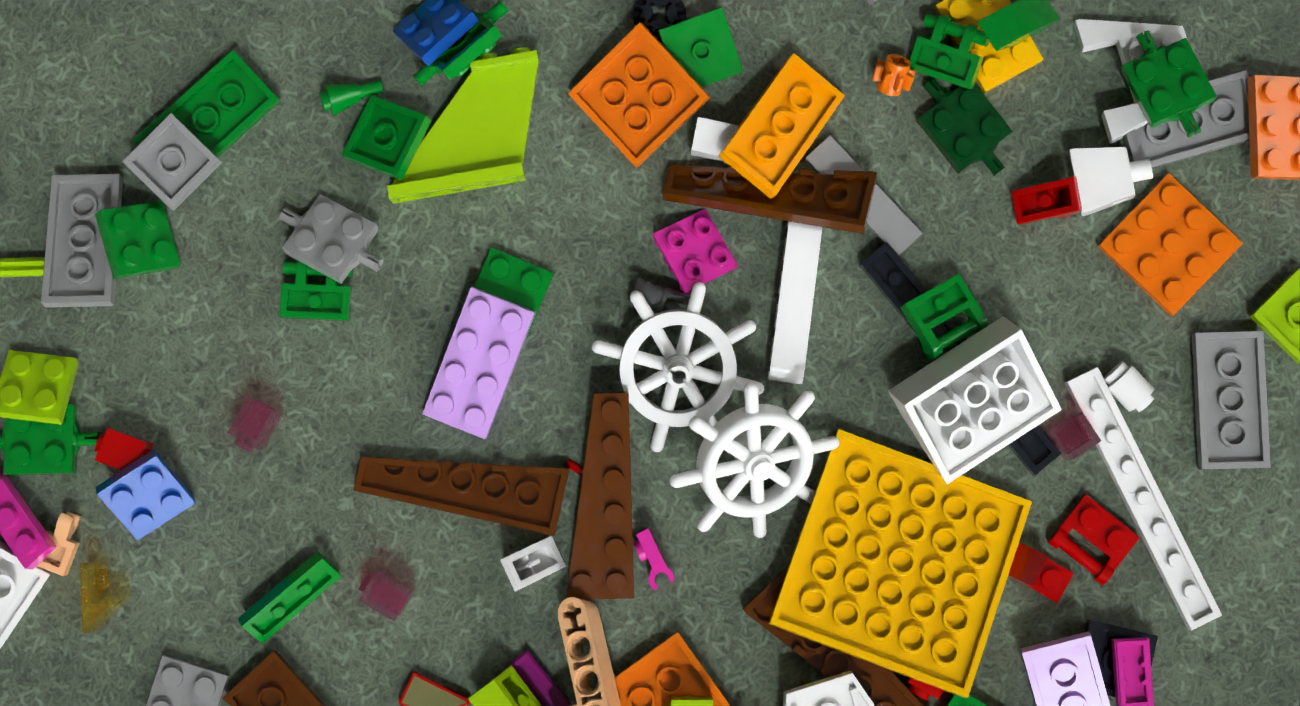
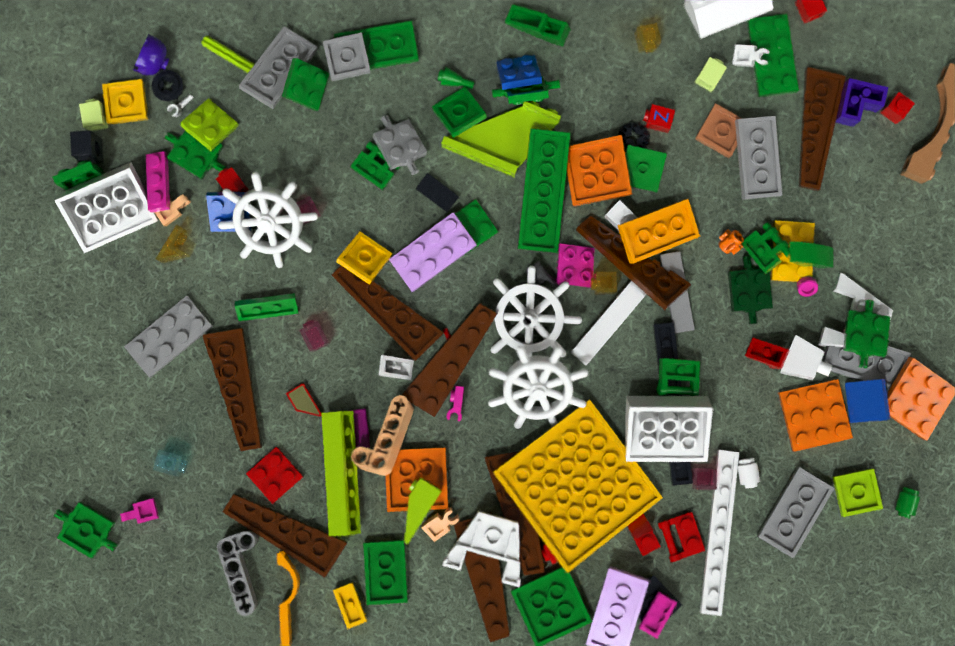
camera: 30 degrees right, 0 degrees up
(209, 471) = (267, 220): none -> white piece
(385, 435) = (364, 257): none -> yellow plate
(429, 273) = (437, 192): none -> black tile
(580, 172) = (543, 190): none -> green plate
(752, 249) = (604, 283): none -> clear yellow brick
(1041, 69) = (807, 286): none -> dark pink tile
(1230, 177) = (867, 401): none -> blue tile

